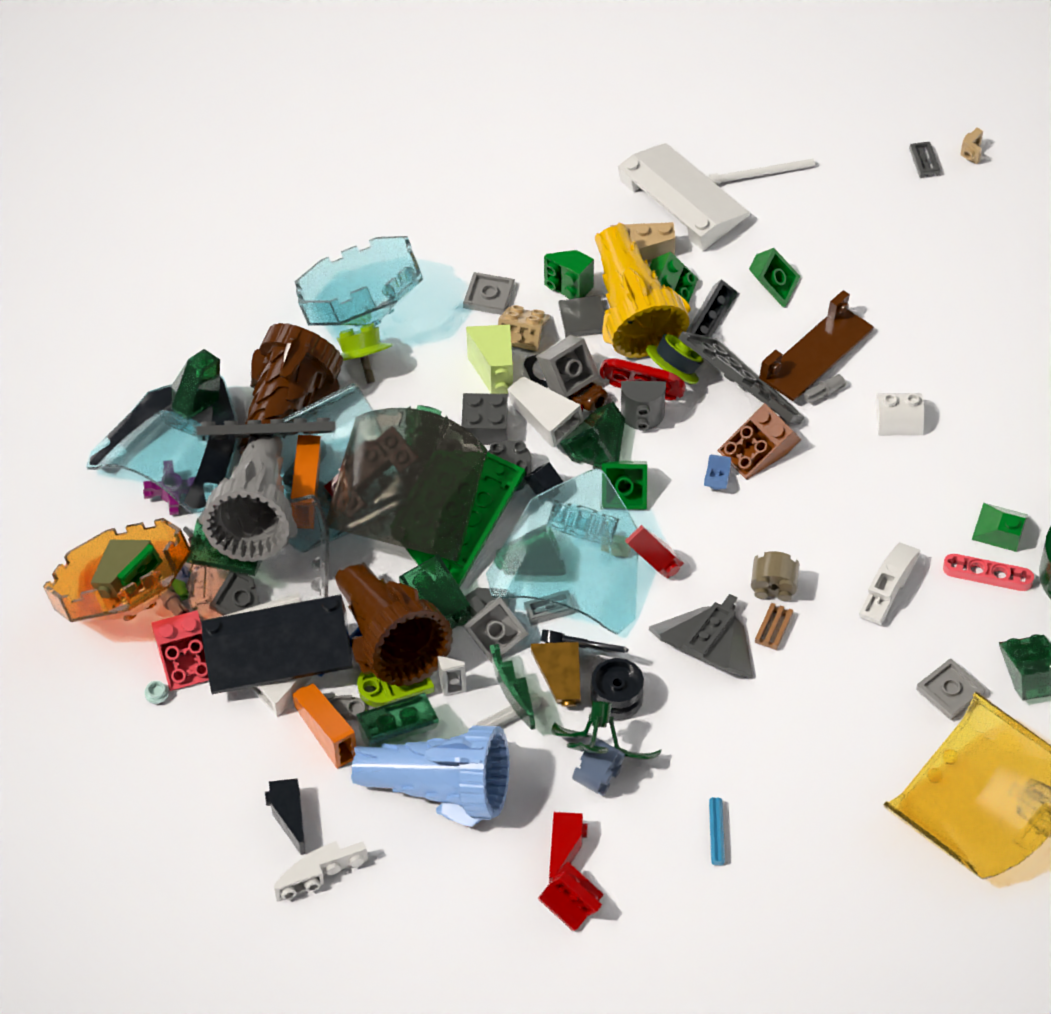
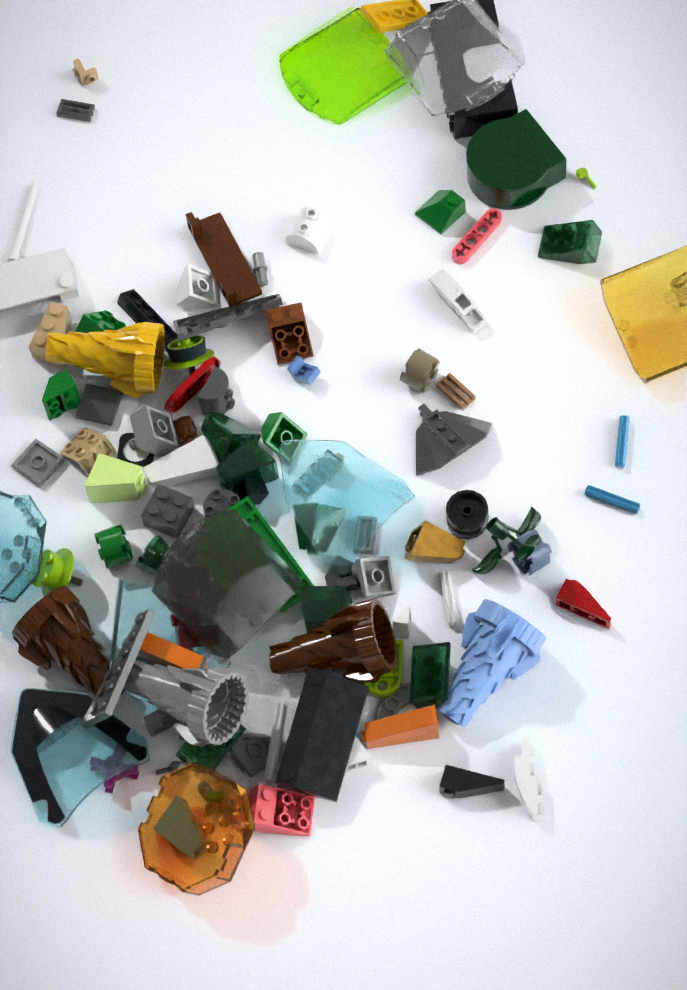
camera: 60 degrees left, 10 degrees up
(141, 565) = (195, 814): green tile -> none
(156, 692) = (308, 845): light aqua plate -> none
(196, 384) = (33, 709): clear green slope -> none
(418, 386) = (114, 546): none -> green brick
(514, 689) = (440, 583): clear green slope -> none
(550, 636) = (402, 537): black piece -> none
(566, 453) = (246, 462): none -> clear green slope
(571, 896) = (629, 613): red bracket -> none
(655, 551) = (366, 438): red slope -> none
(762, 338) = (196, 289): none -> white slope
(775, 275) = (134, 256): green slope -> none
(798, 814) = (622, 439): none -> dark azure axle
(949, 688) = (564, 302): light grey plate -> none

